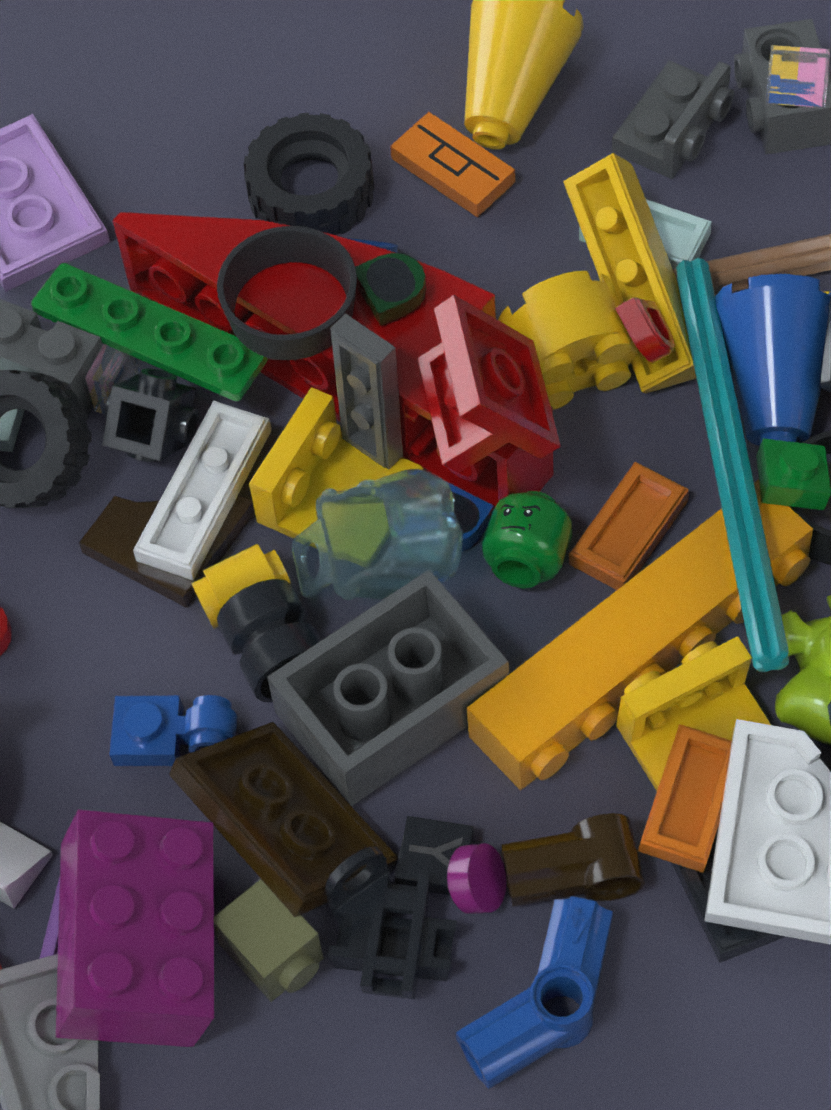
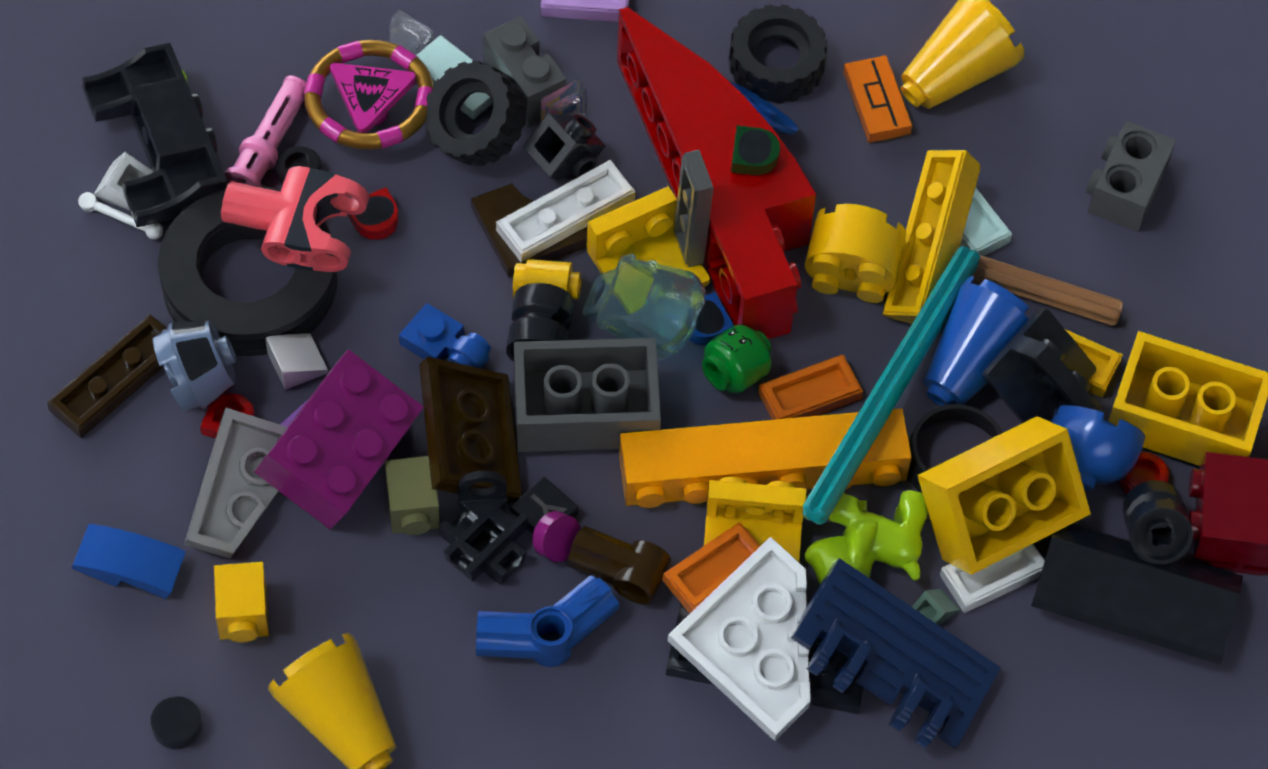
camera: 25 degrees right, 0 degrees up
(149, 331) = (600, 93): green bracket -> none
(276, 247) = (692, 83): black tyre -> none
(484, 388) = (759, 246): red bracket -> none
(646, 328) = (903, 273): red tile -> none
(674, 118) = (1043, 152): dark grey bracket -> none
(793, 474) = (924, 417): green plate -> none
(797, 76) = (1132, 171): clear tile -> none

